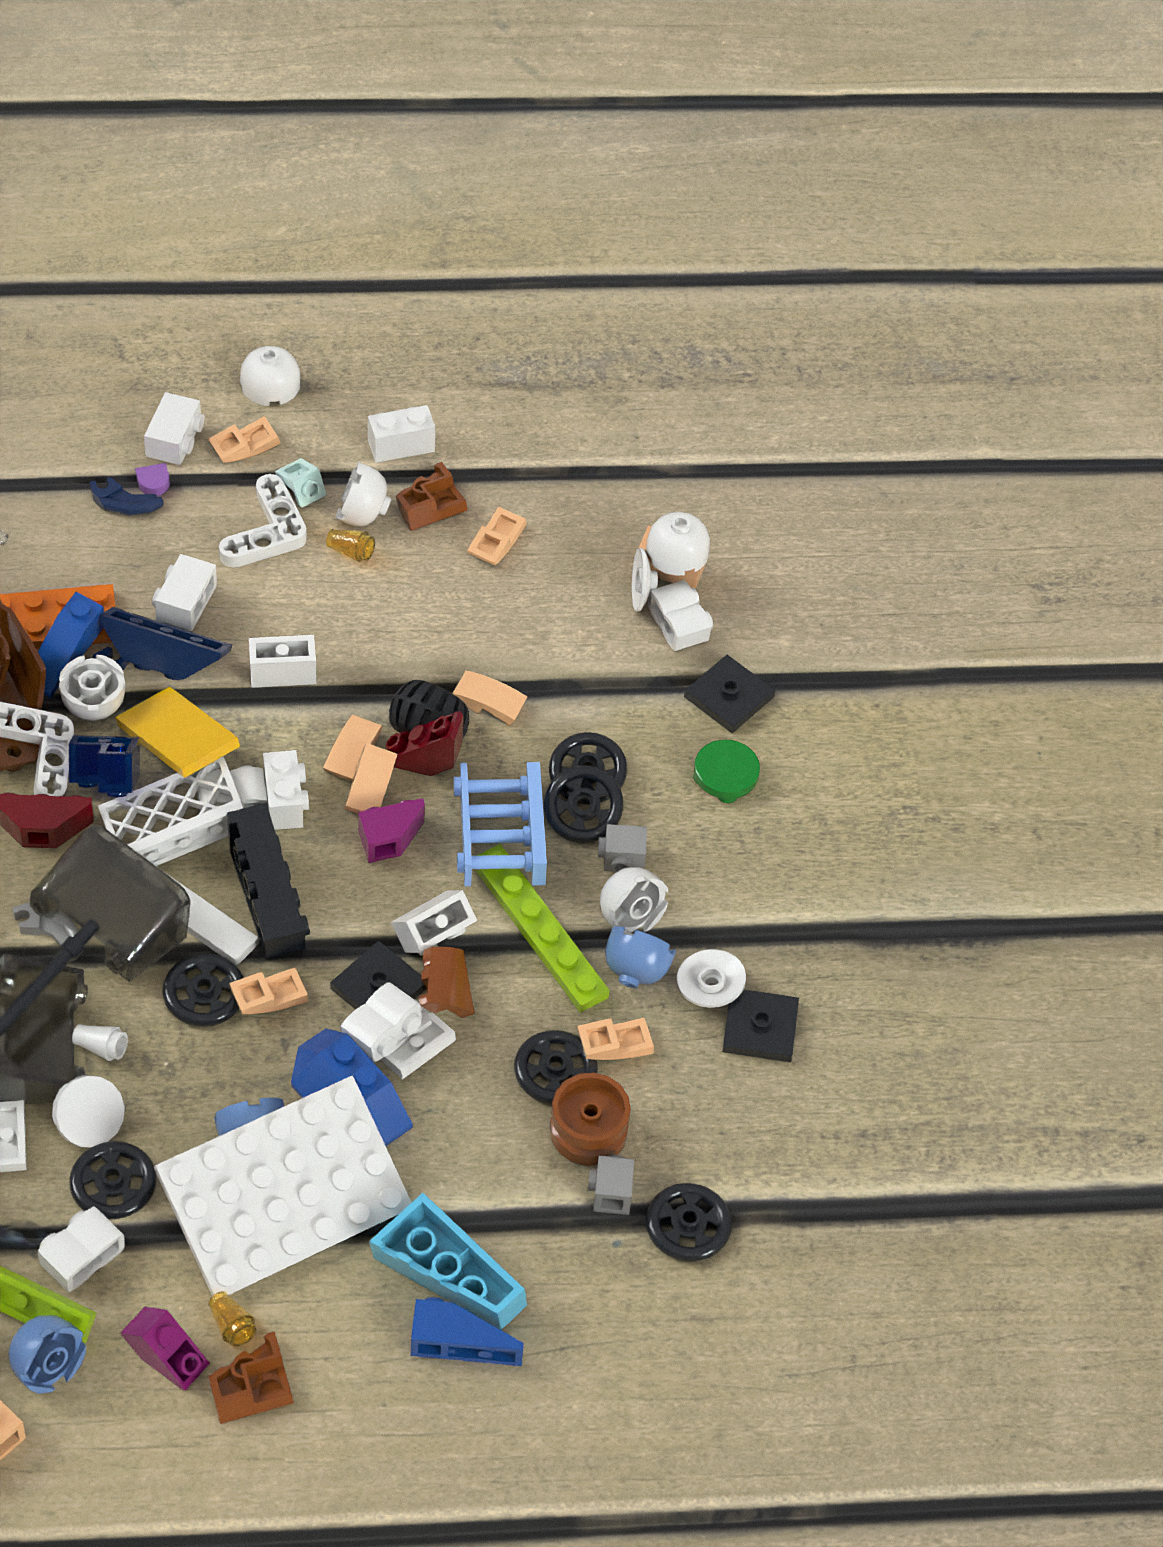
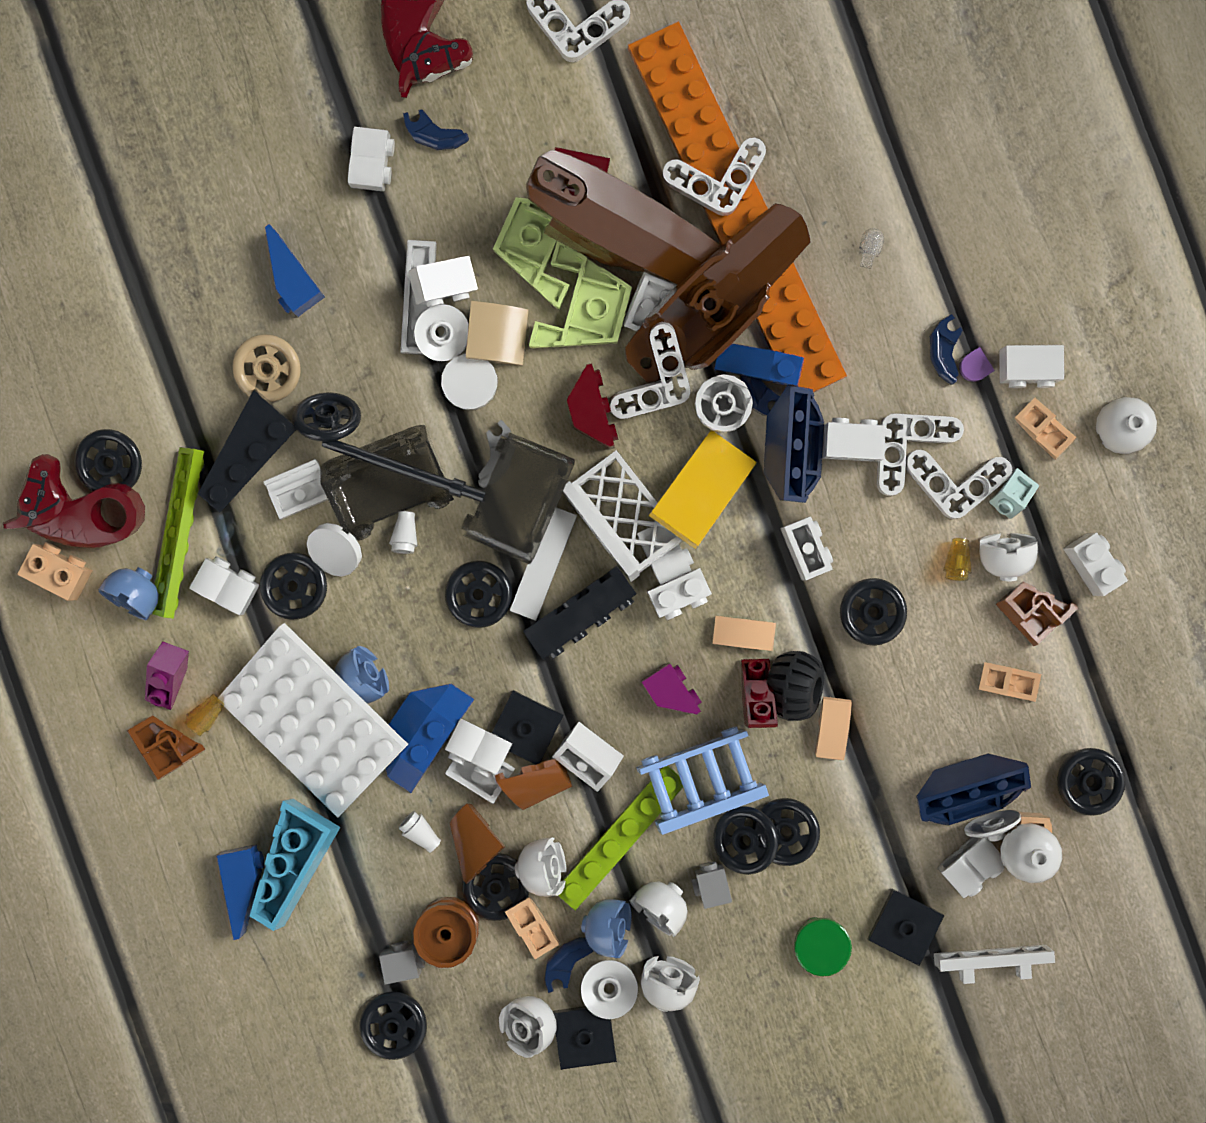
camera: 80 degrees right, 35 degrees up
(105, 762) = (656, 444): clear blue brick -> none
(196, 527) = (906, 434): none -> white beam
(269, 994) = (488, 645): light nougat slope -> none
(370, 779) = (712, 660): light nougat slope -> none
(371, 650) = (849, 615): none -> black plate
(460, 1123) = (419, 831): none -> white cone
(491, 1065) = (473, 841): none -> dark orange slope
(546, 1000) = (541, 867): none -> white cylinder
(597, 586) = (972, 788): none -> dark blue wedge
(626, 498) = (1109, 797): none -> black plate
(666, 1023) = (563, 960): none -> dark blue piece
(724, 917) = (669, 983): none -> white cylinder
(727, 1063) = (528, 1025): none -> white cylinder
(786, 647) = (1019, 957): none -> white hinge

